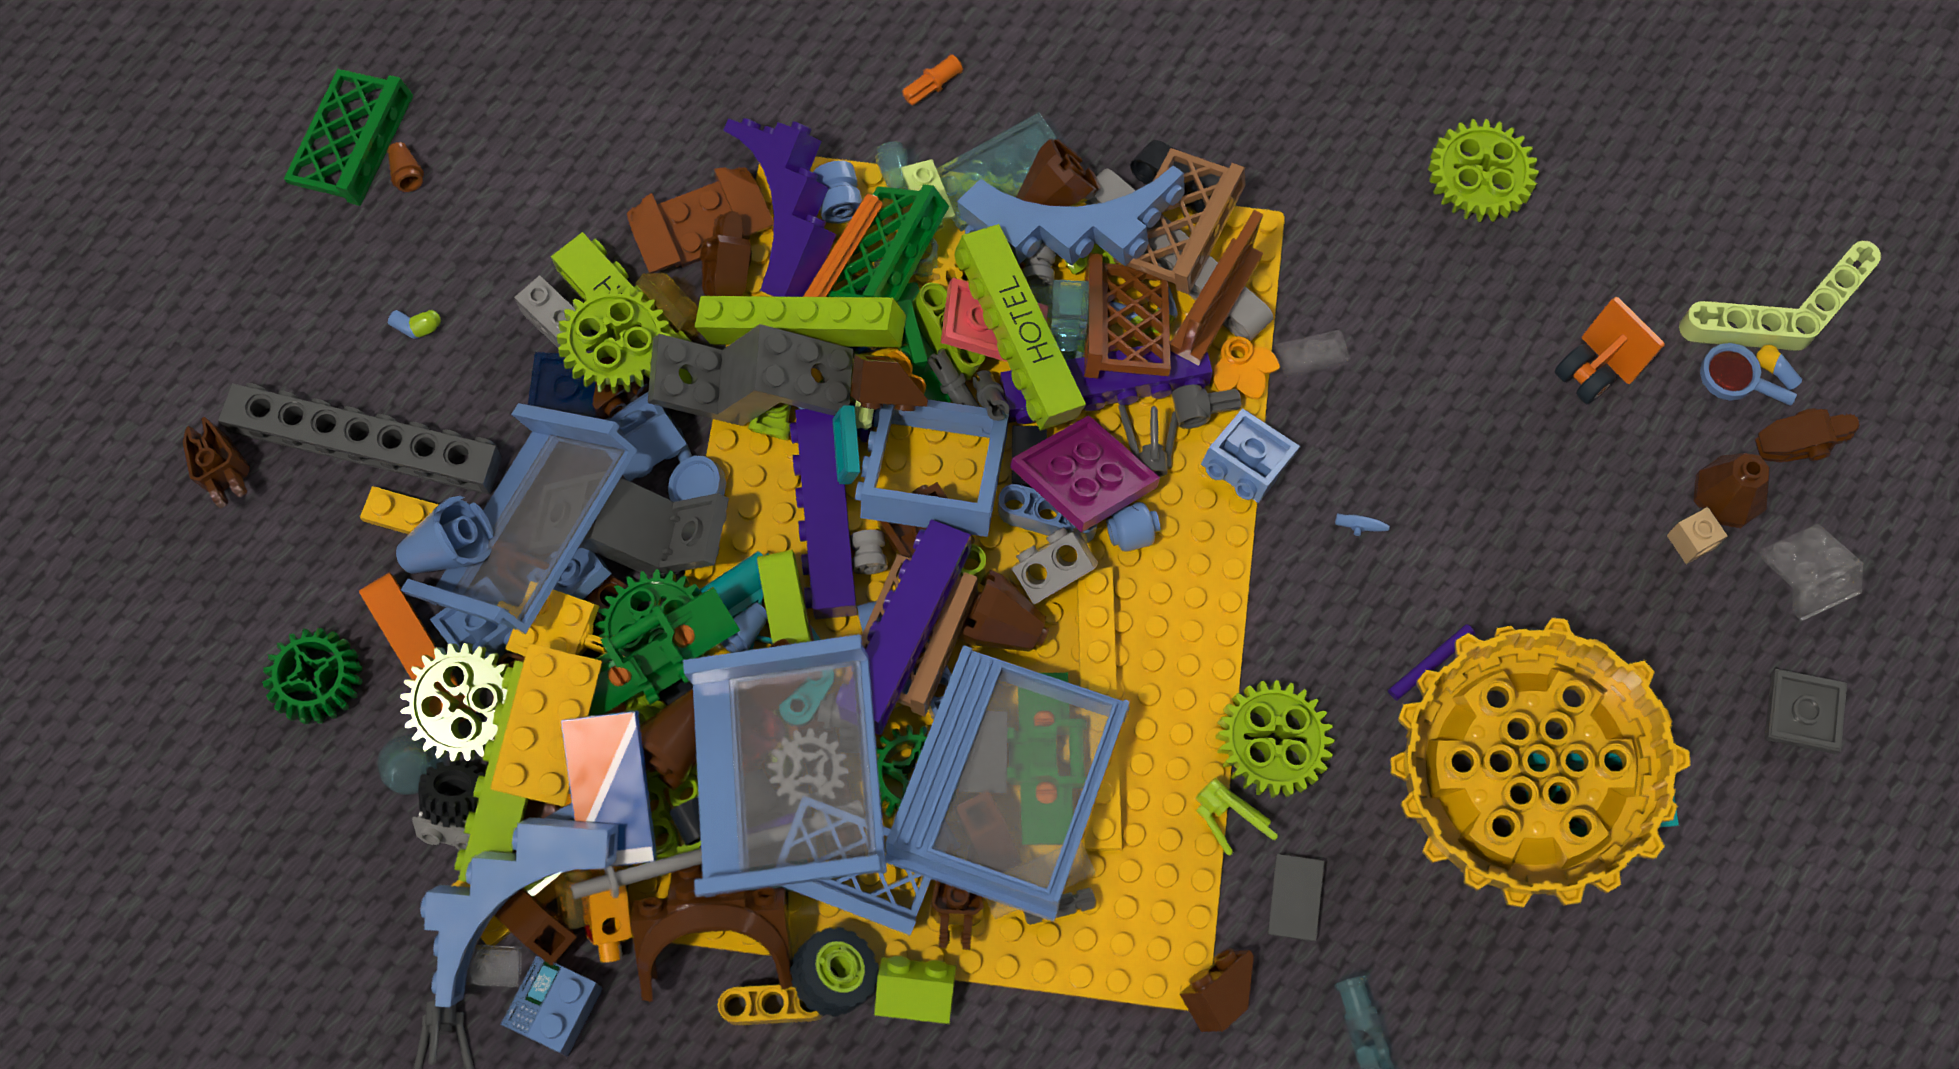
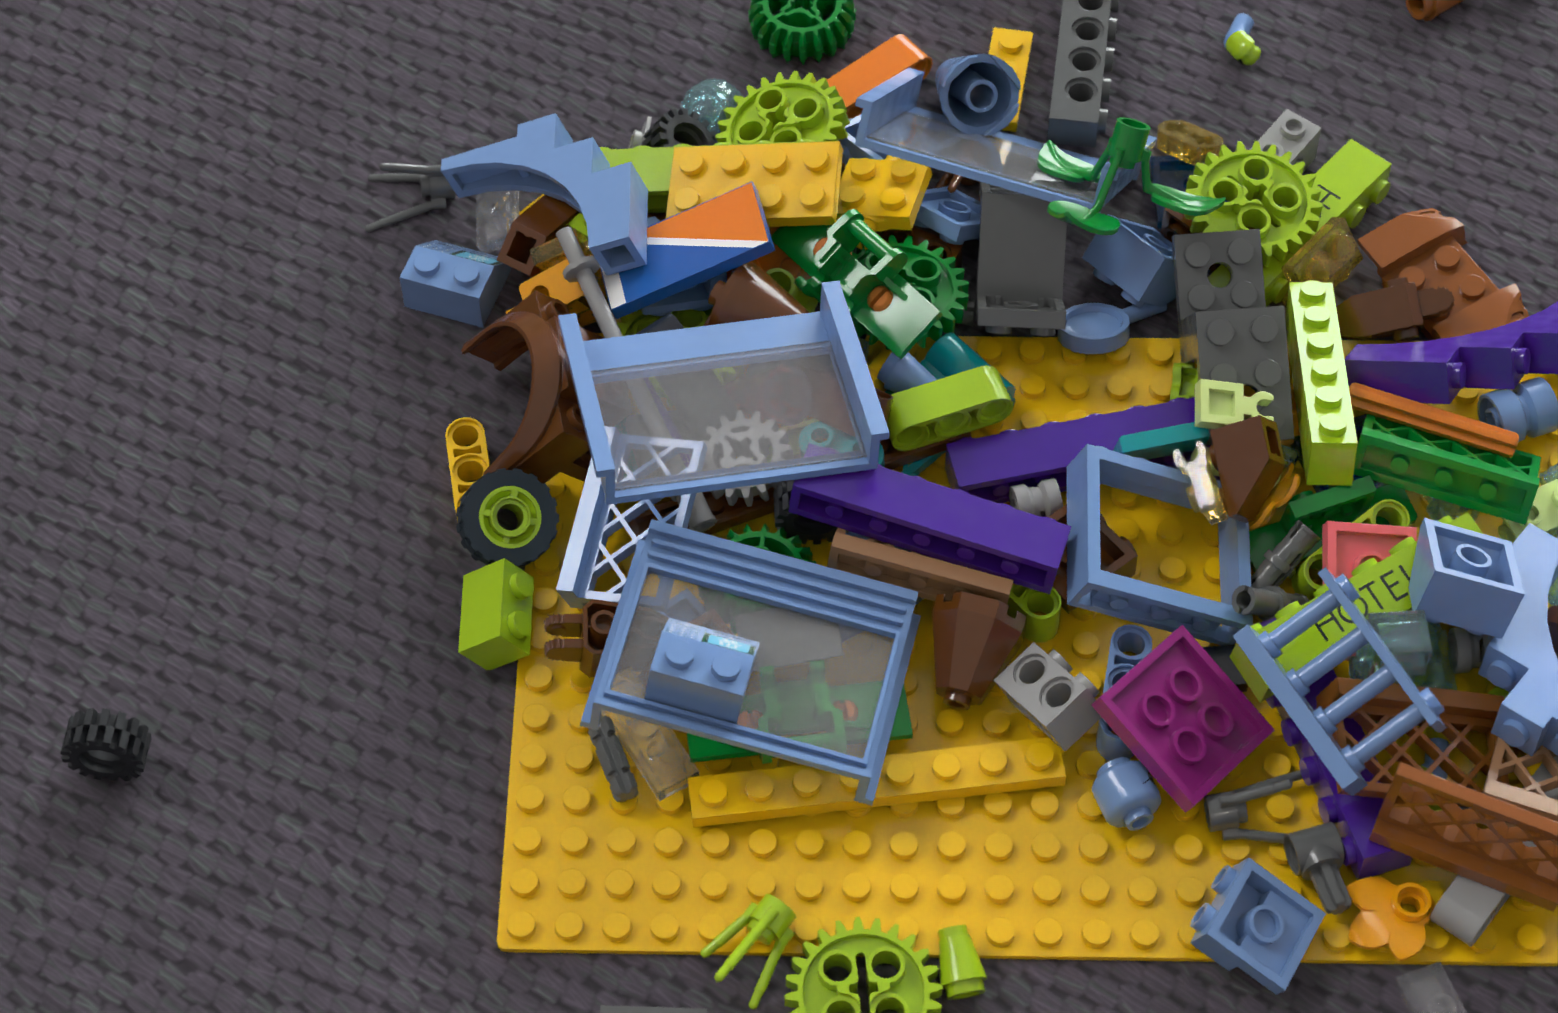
camera: 85 degrees right, 15 degrees down
(523, 380) = (1187, 141): none -> clear yellow beam
(575, 462) = (1124, 150): none -> green plant
(835, 385) = (1224, 403): none -> yellowish green plate
(904, 419) = (1204, 491): none -> clear yellow plate
(1022, 248) = (1465, 579): none -> medium blue slope
(1033, 811) = (701, 670): none -> medium blue slope
(1132, 371) = (1320, 723): none -> medium blue fence
(1220, 992) = (517, 948): reddish brown slope -> none
(1257, 666) = (959, 964): none -> lime cone

